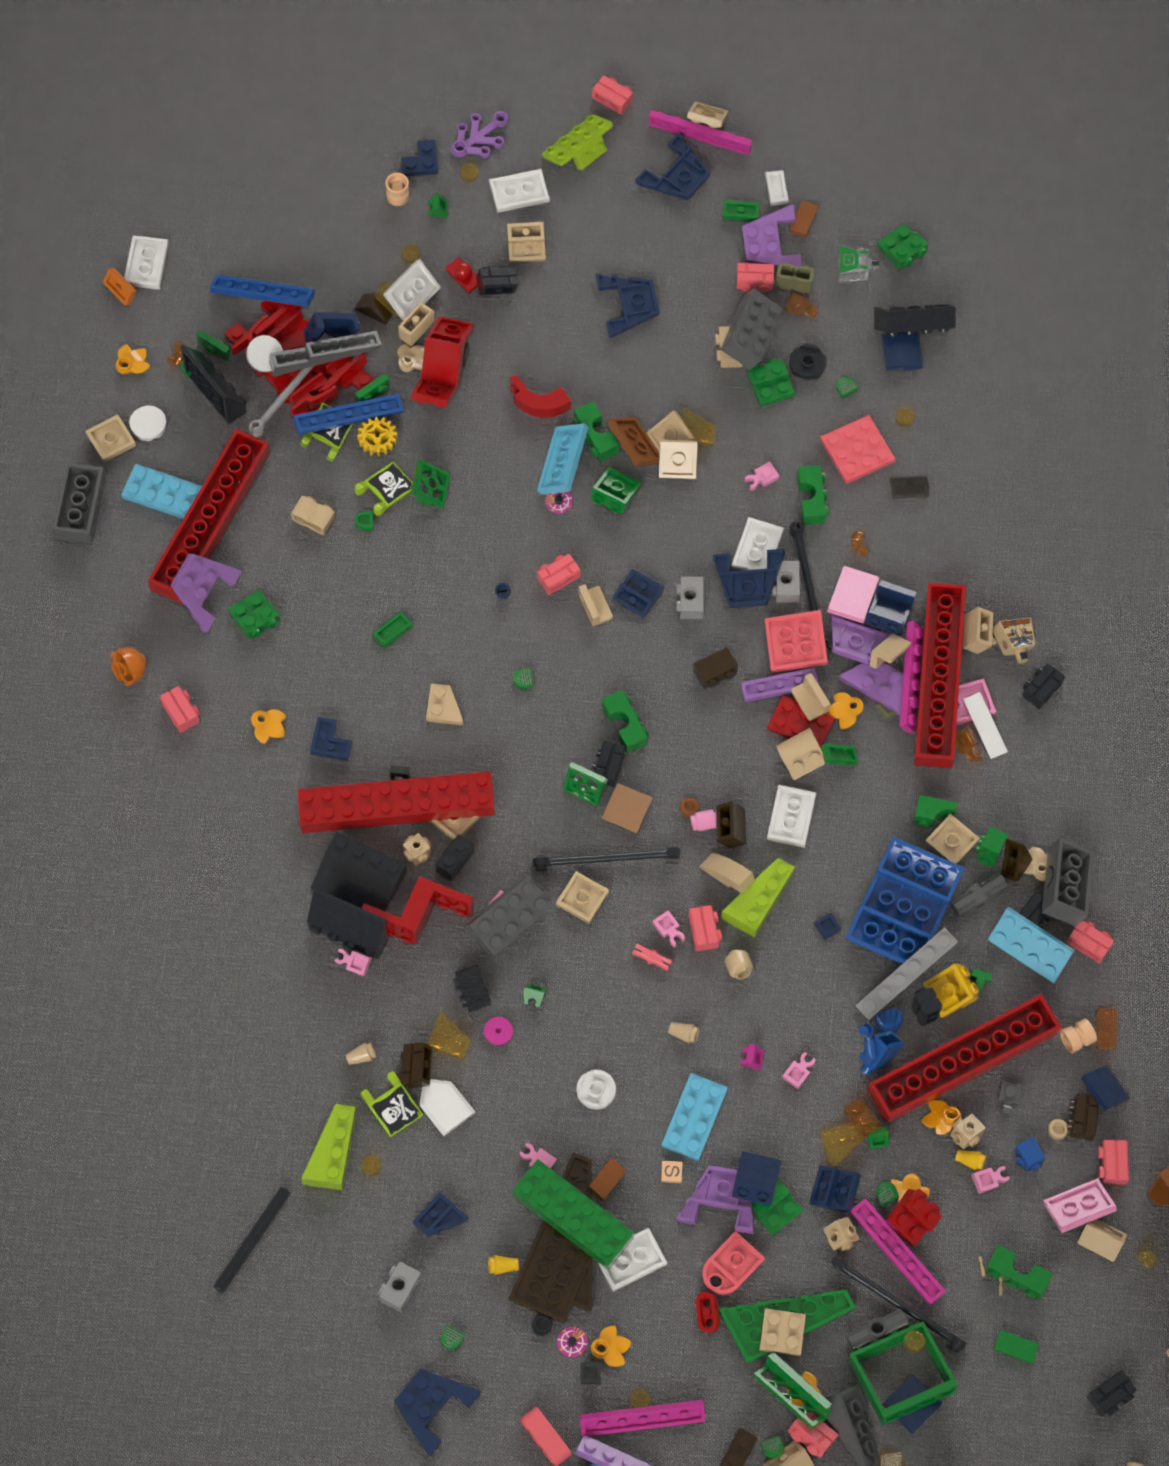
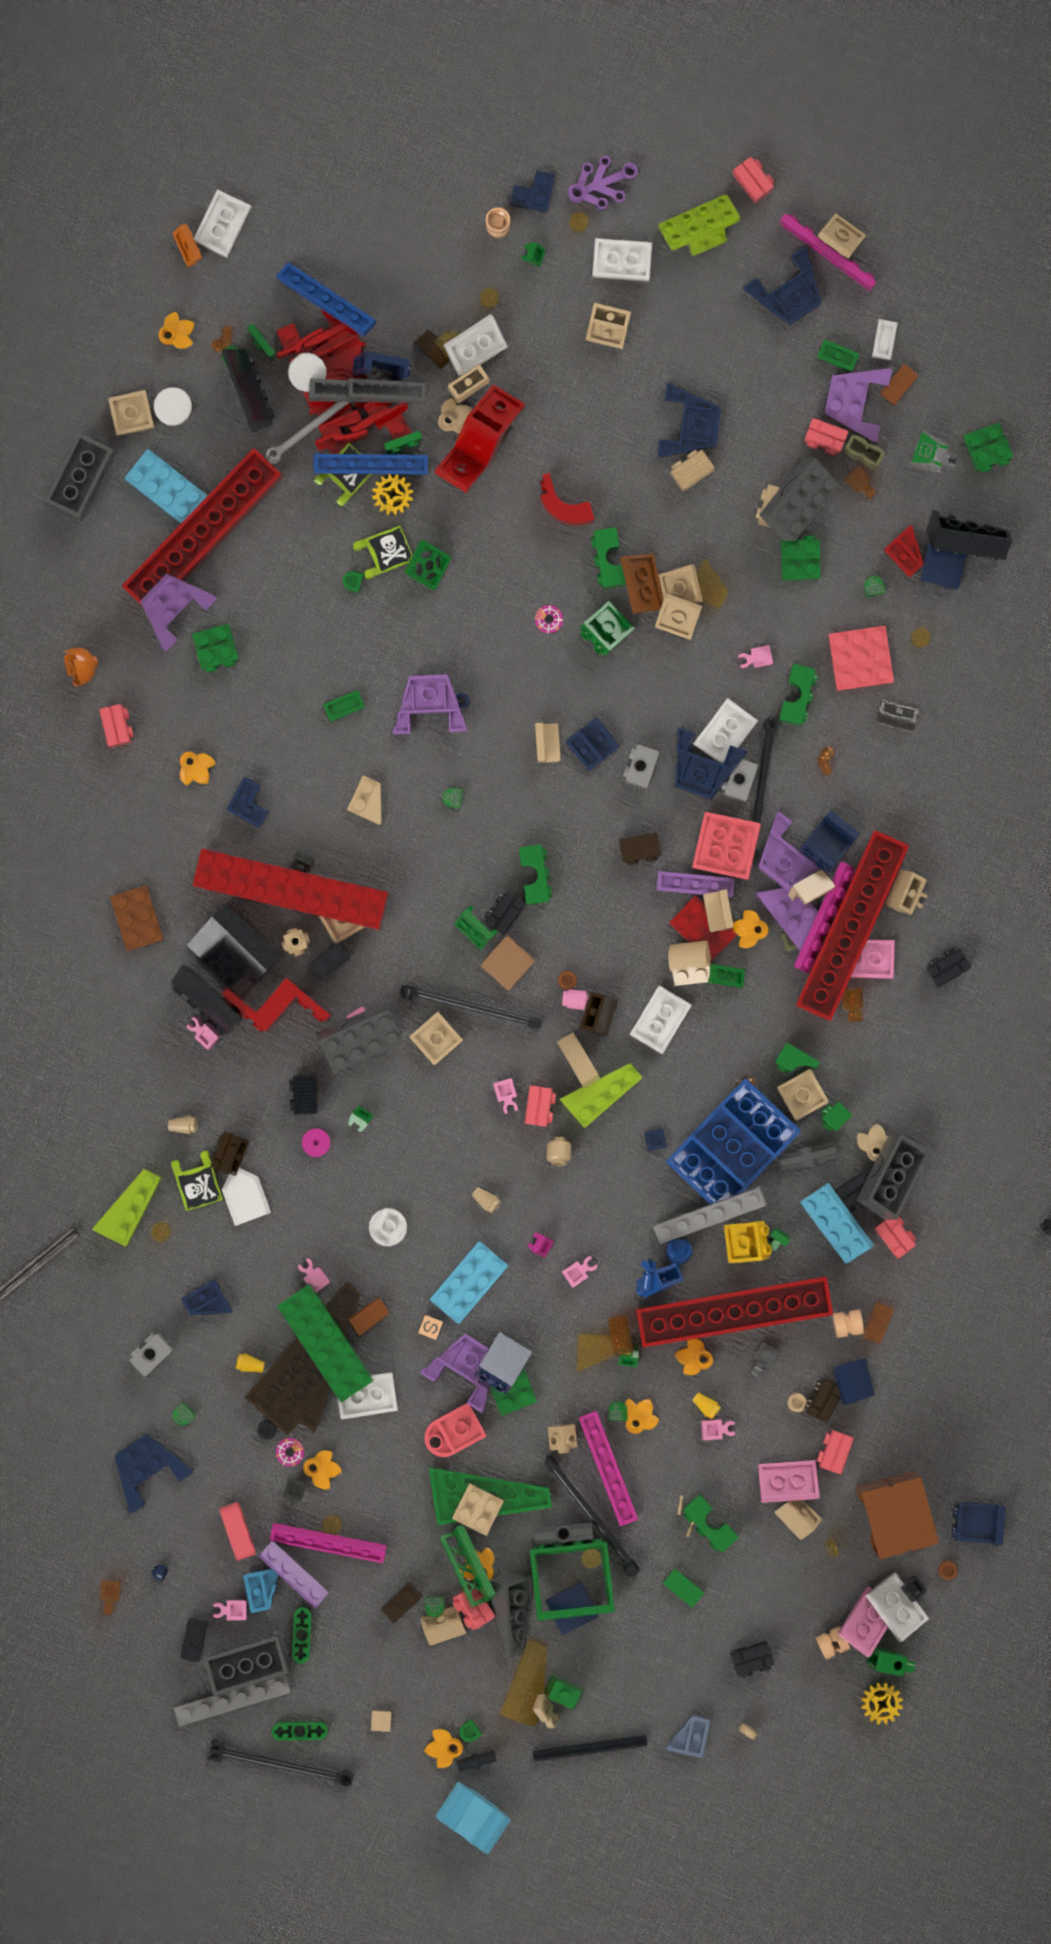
camera: 25 degrees right, 20 degrees up
(254, 877) = (136, 918): none -> dark orange plate
(313, 515) = (303, 560): tan brick -> none
(448, 1039) = (267, 1135): clear yellow wing -> none
(462, 274) = (535, 339): red tile -> none
(470, 595) = (429, 695): none -> medium lavender wing
(497, 280) = (564, 359): black brick -> none
(558, 573) = (521, 700): coral brick -> none
(562, 459) = (565, 579): medium azure plate -> none
(645, 338) = (691, 470): none -> tan brick
(652, 957) = (481, 1117): coral pin -> none
(707, 1313) = (417, 1467): red plate -> none
(804, 371) = (842, 537): black plate -> none
(835, 1189) = (572, 1392): dark blue slope -> none
(853, 594) = (800, 813): bright pink tile -> none
(863, 350) = (905, 552): none -> red wing
(914, 1216) = (633, 1443): red plate -> none
(926, 1006) = (716, 1251): black brick -> none
(967, 1131) = (711, 1380): tan brick -> none
(985, 725) = (877, 988): white sticker -> none
(1015, 637) = (939, 911): tan torso -> none
(1015, 860) = (853, 1136): dark brown slope -> none
(1029, 1155) = (760, 1419): blue brick -> none

